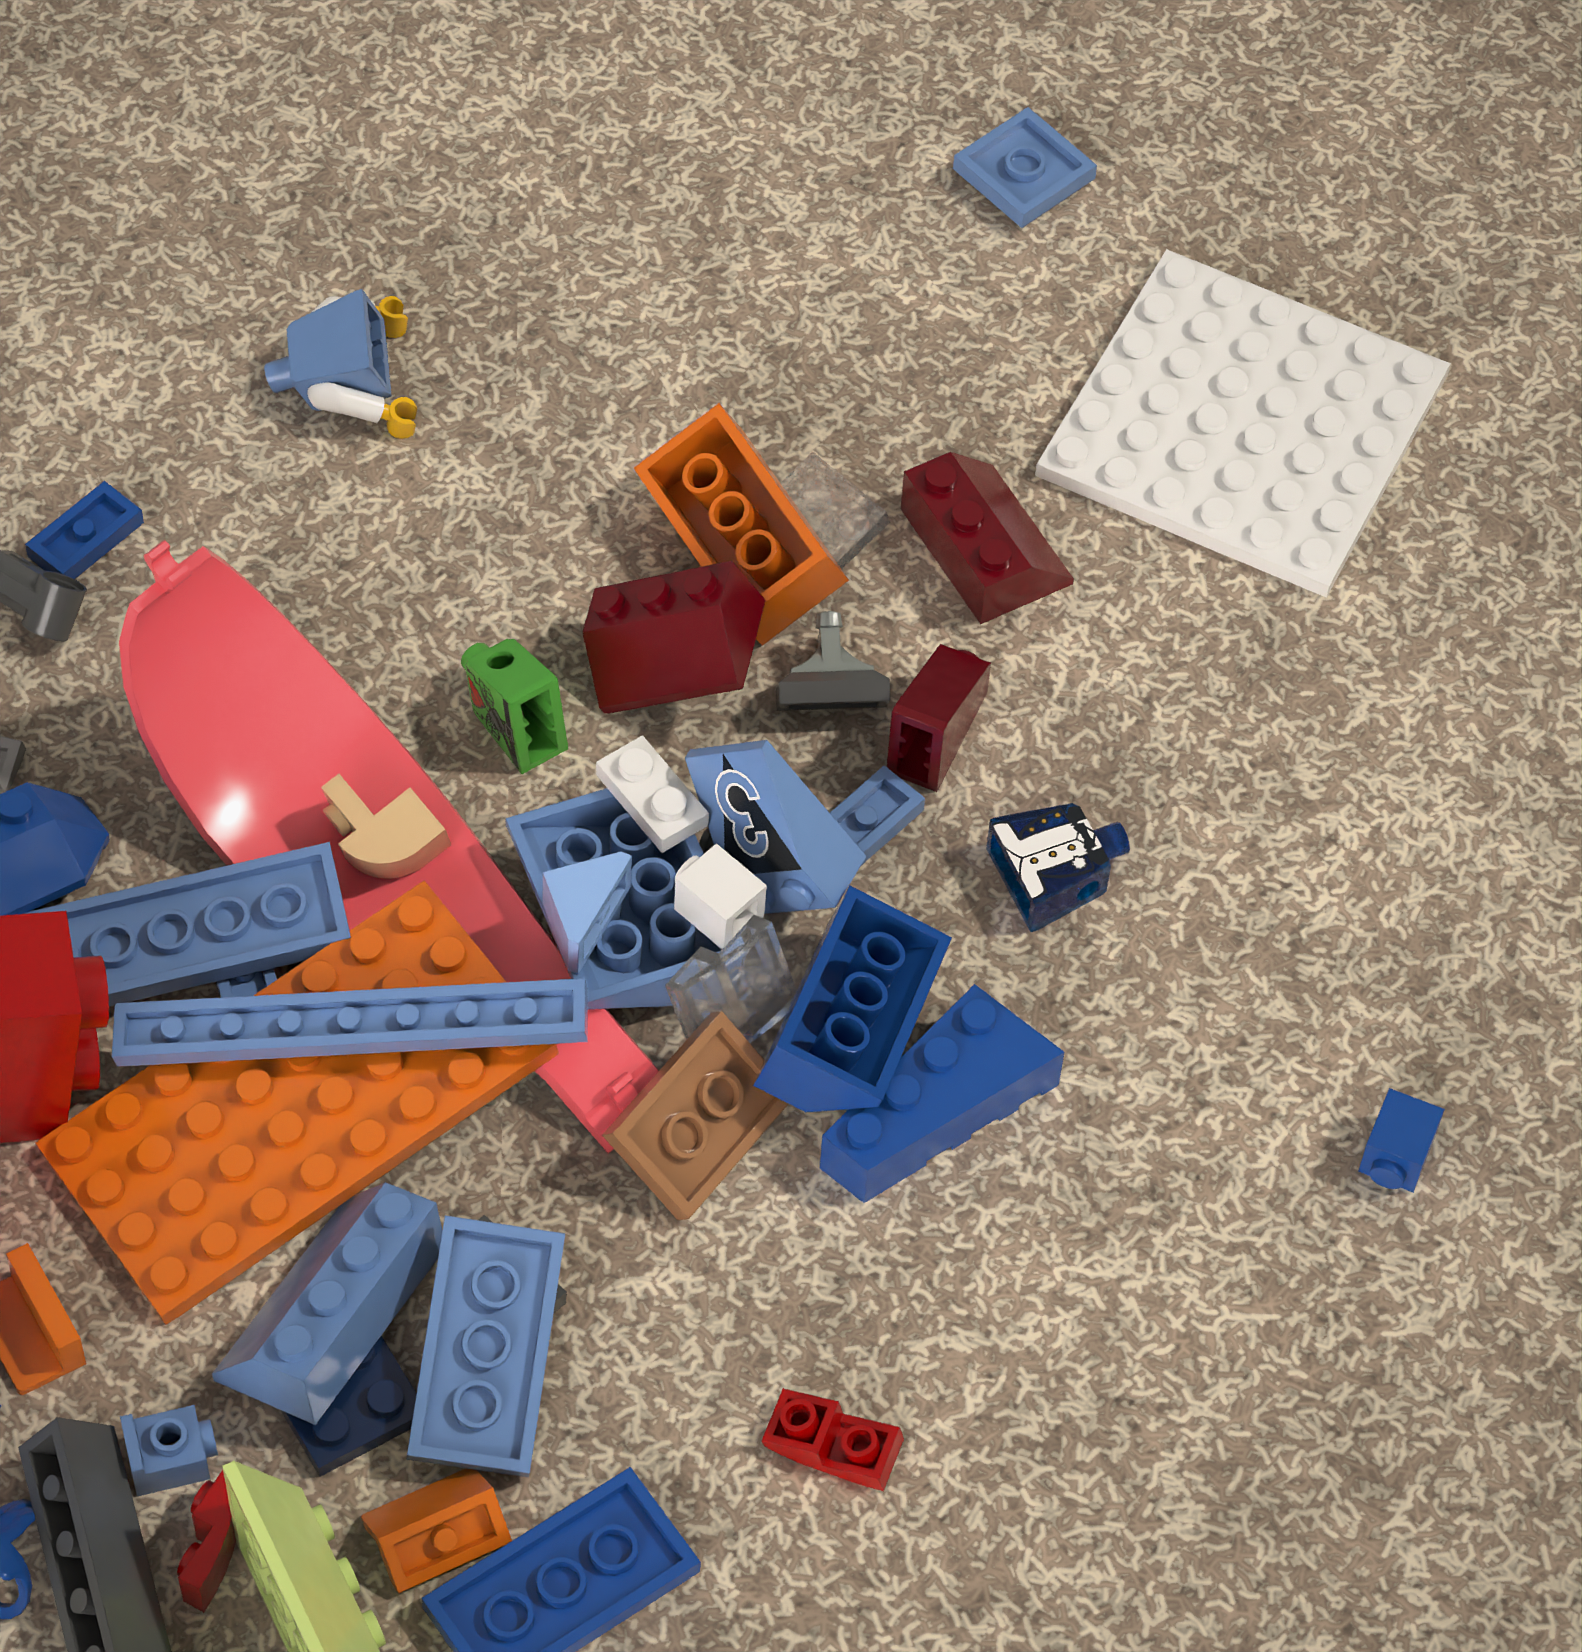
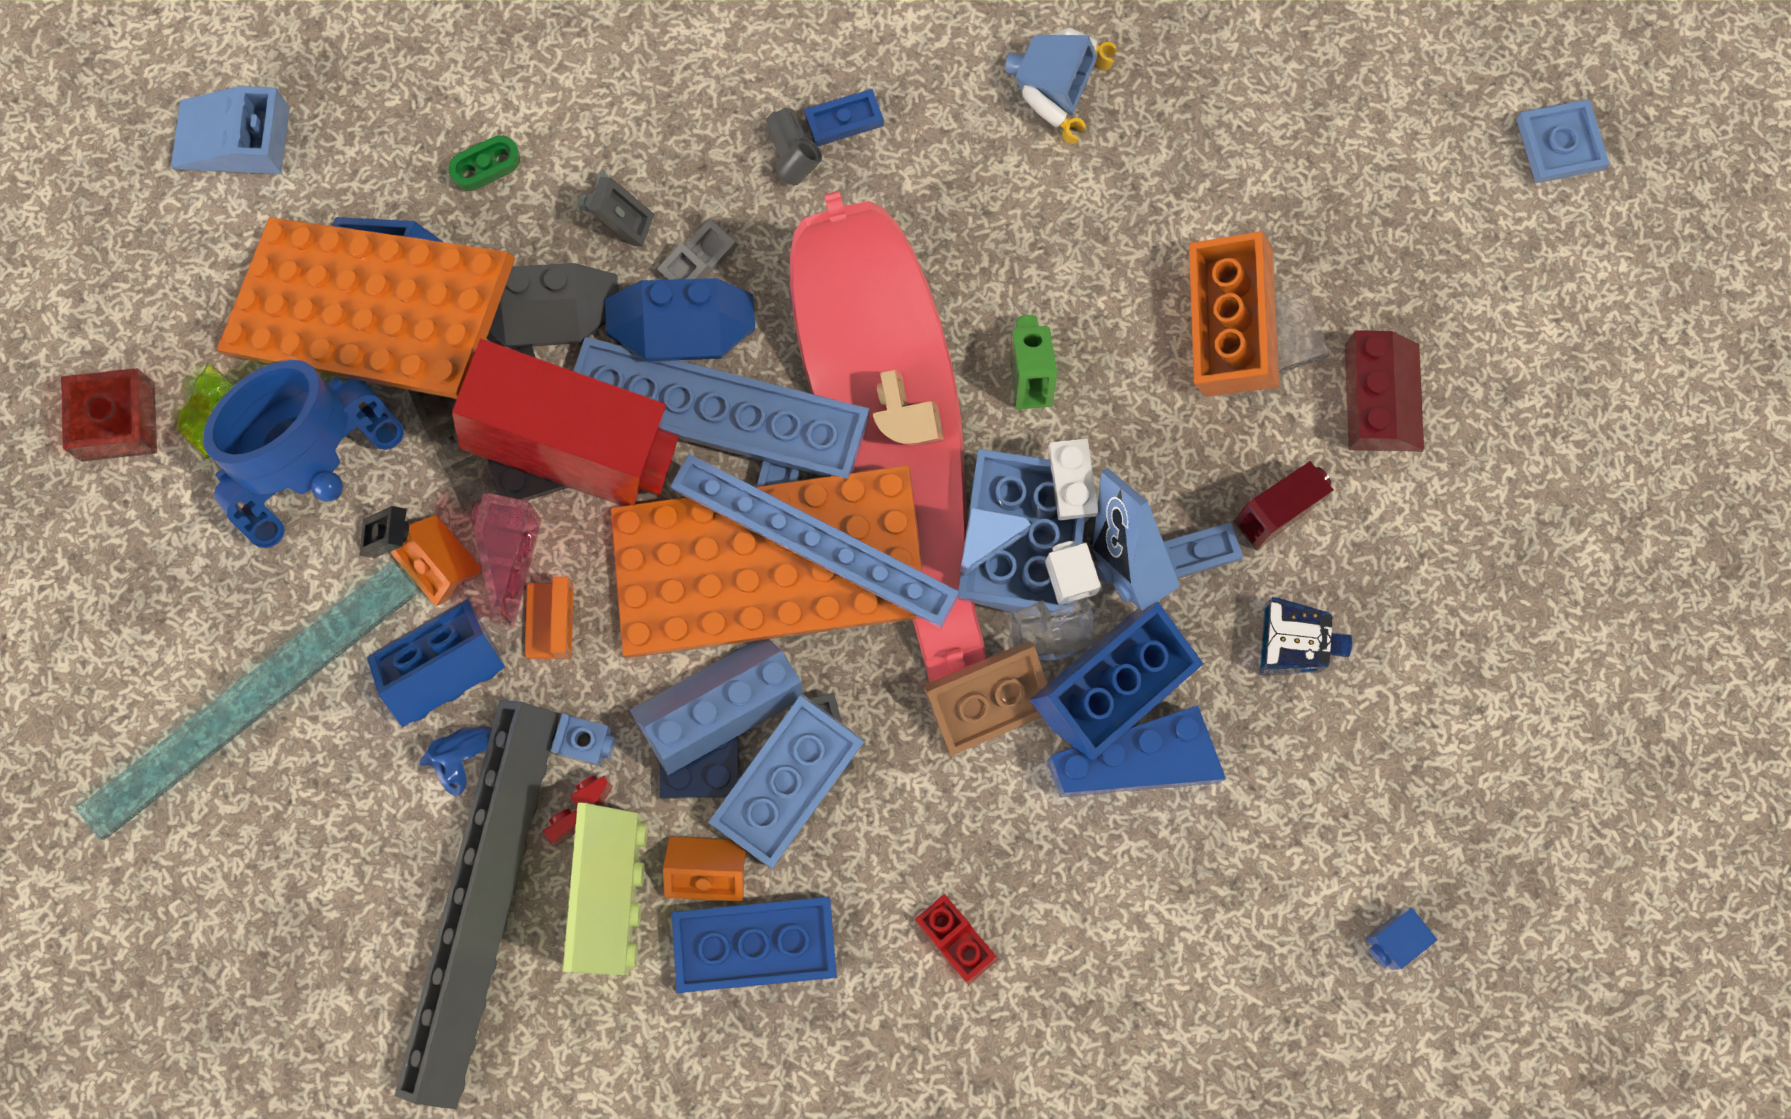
camera: 30 degrees right, 20 degrees up
(671, 636) = (1147, 374): dark red slope -> none
(832, 676) = (1233, 445): dark grey piece -> none
(1244, 422) = (1599, 393): white plate -> none

